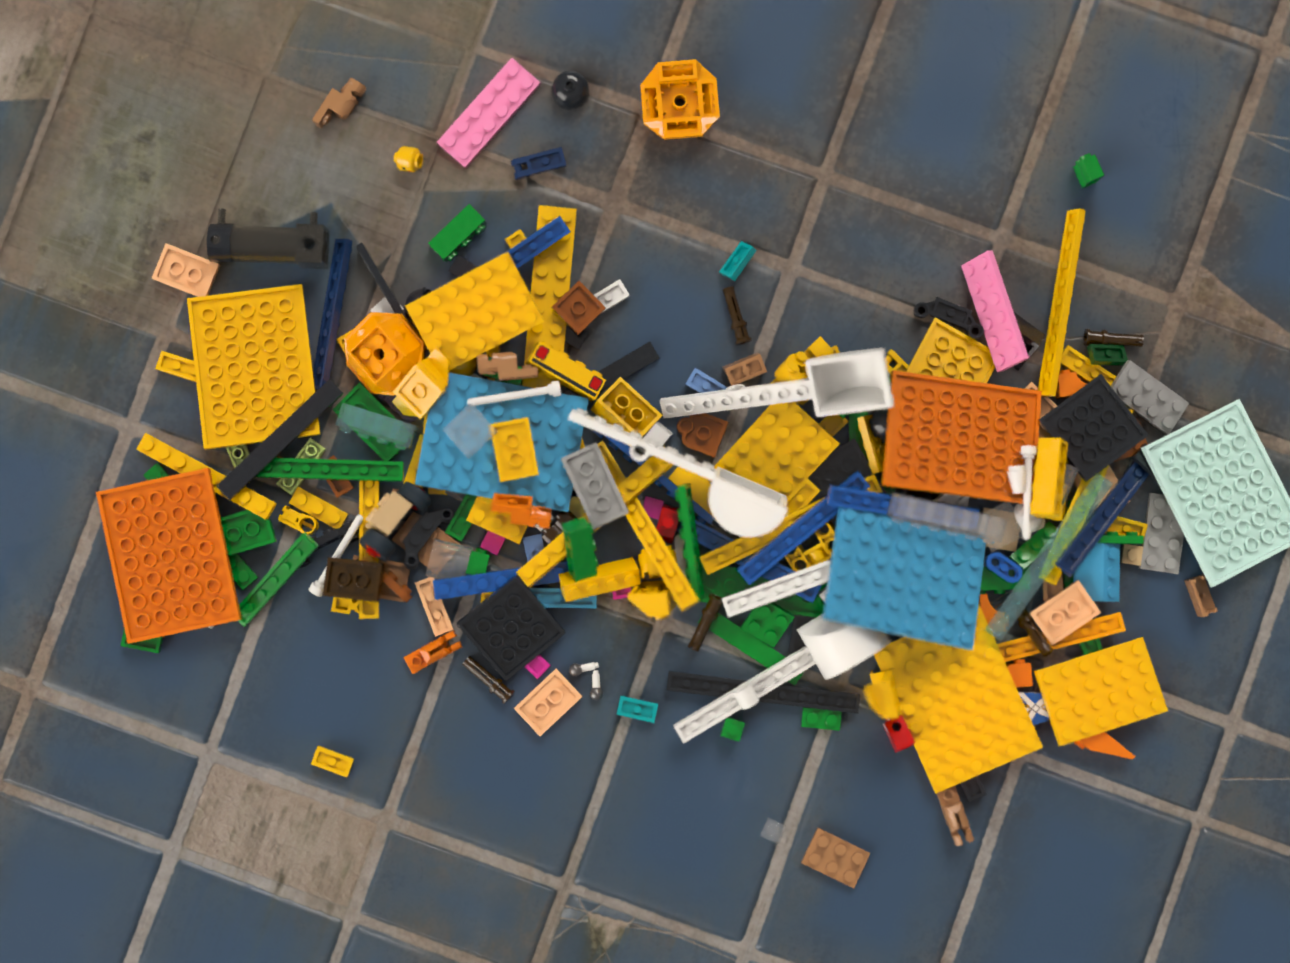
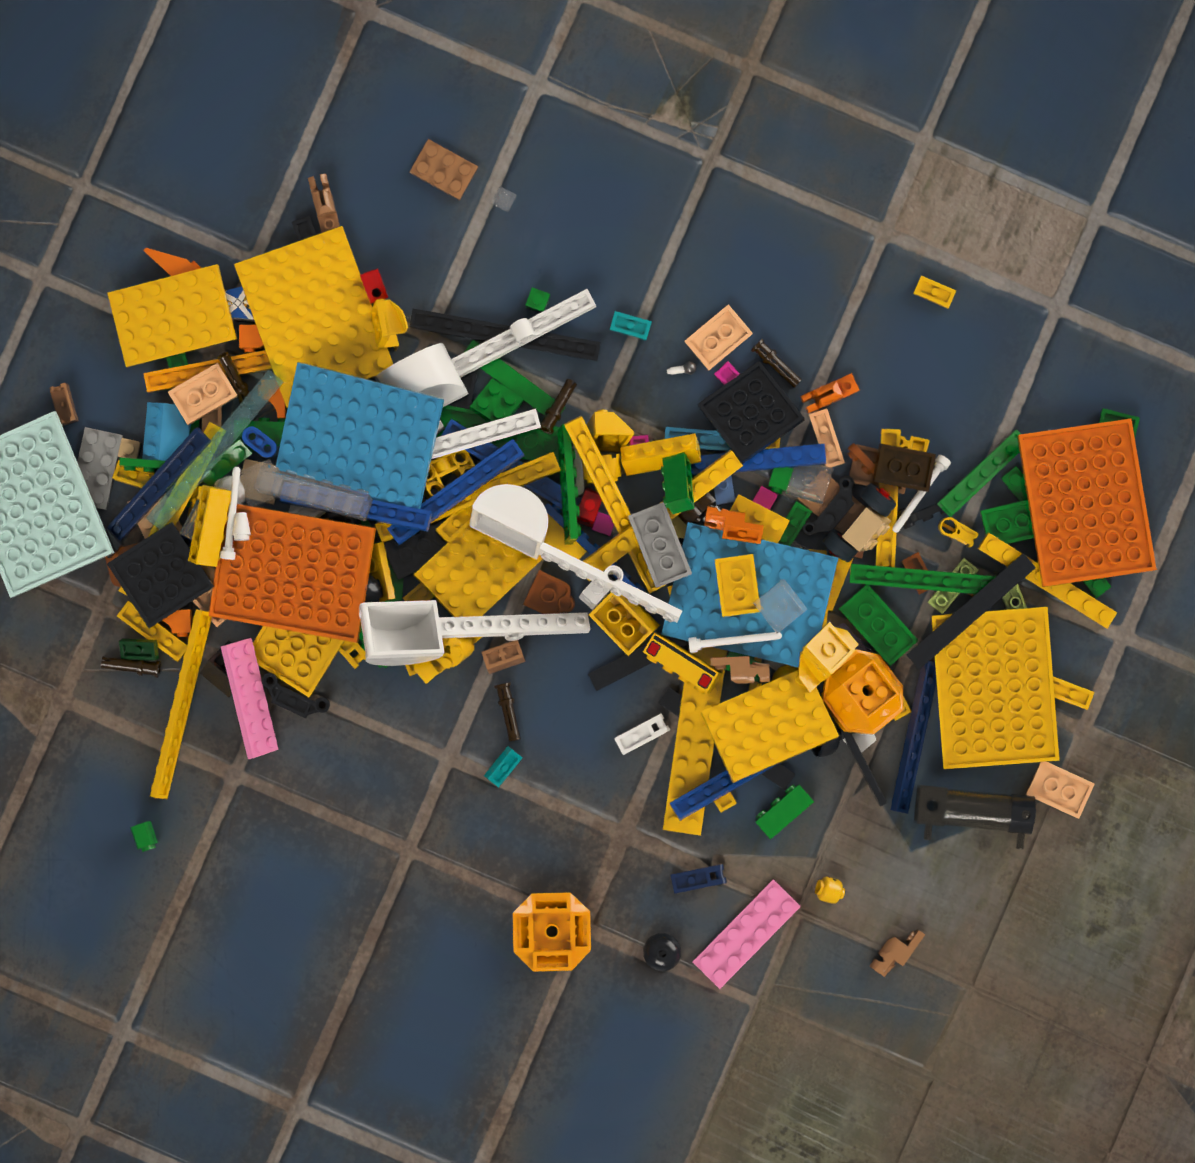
camera: 175 degrees left, 0 degrees up
(318, 508) = (937, 543): yellow plate -> none
(377, 426) = (874, 620): clear light blue brick -> none
(578, 307) = (666, 726): dark orange plate -> none
(596, 692) = (670, 344): piece -> none
(703, 383) = (544, 644): medium blue plate -> none
(821, 719) = (449, 305): green plate -> none
(1149, 397) = (101, 604): light grey plate -> none

